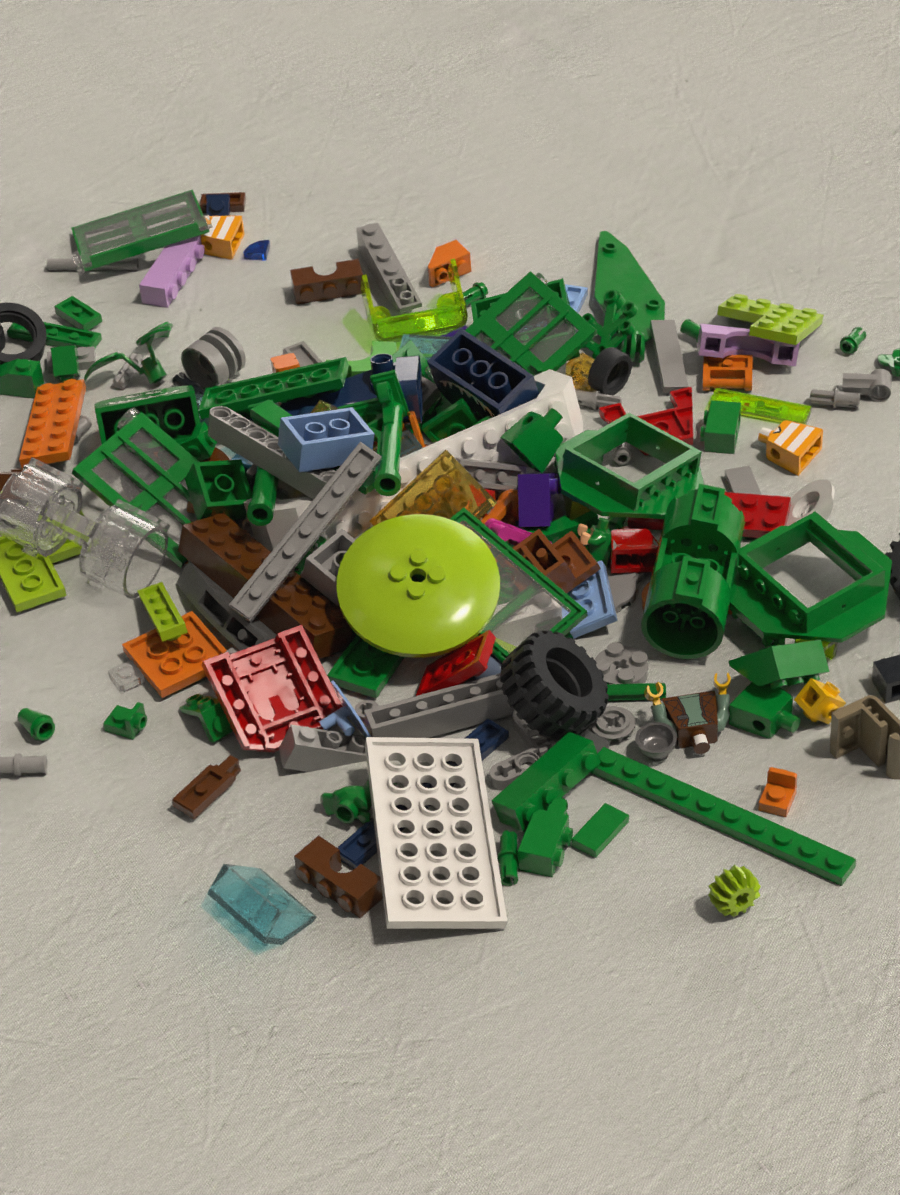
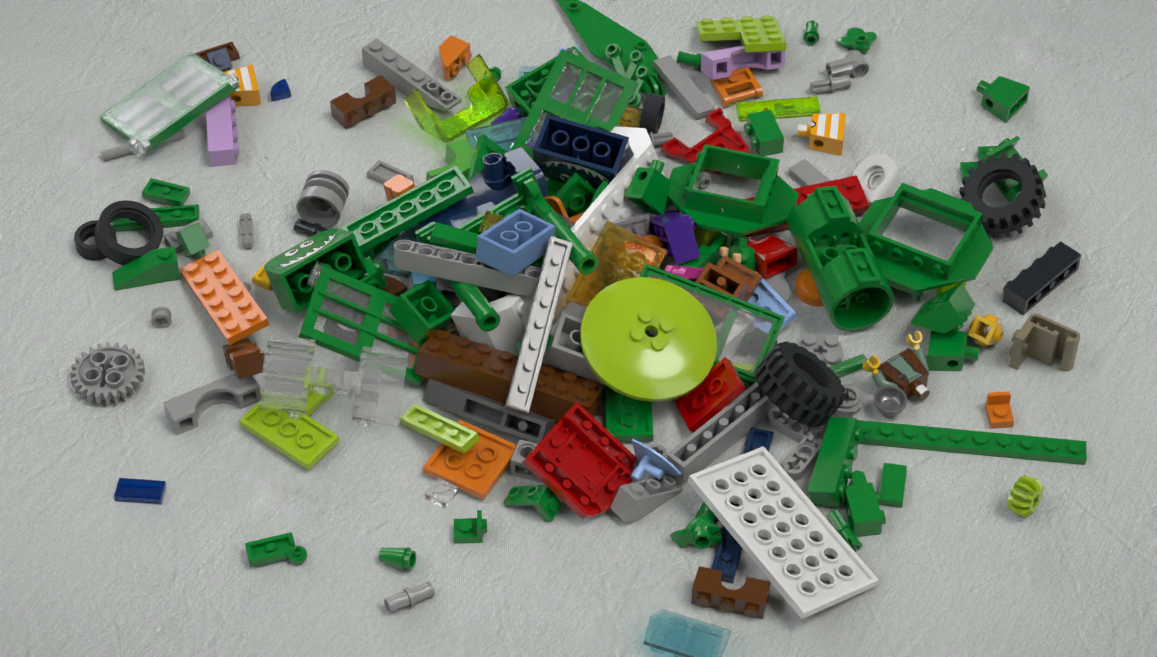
camera: 30 degrees left, 5 degrees up
(150, 366) = (270, 220): green plant -> none
(206, 787) = (576, 560): reddish brown hinge -> none

